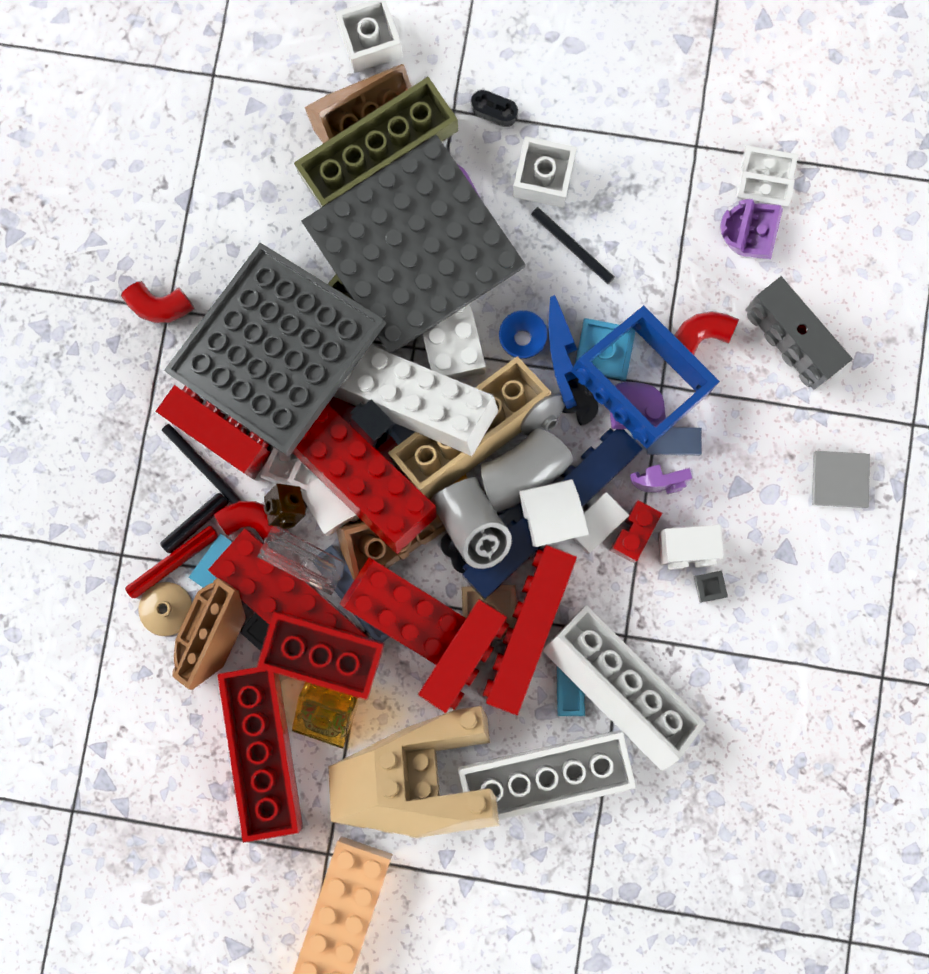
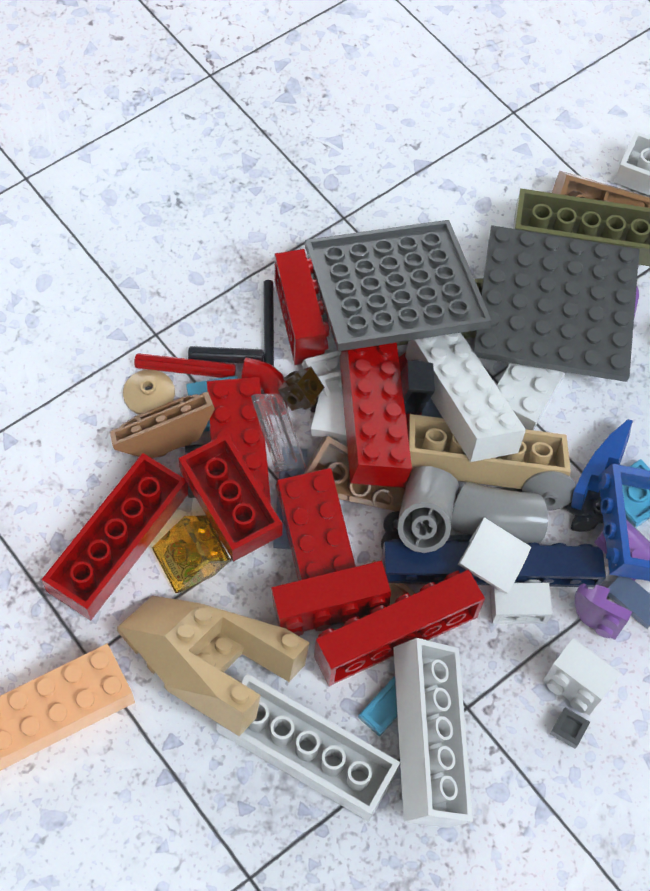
camera: 30 degrees right, 20 degrees down
(155, 308) = (336, 207): red cylinder -> none
(523, 321) = (585, 420): blue piece -> none
(642, 523) = (537, 638): red brick -> none

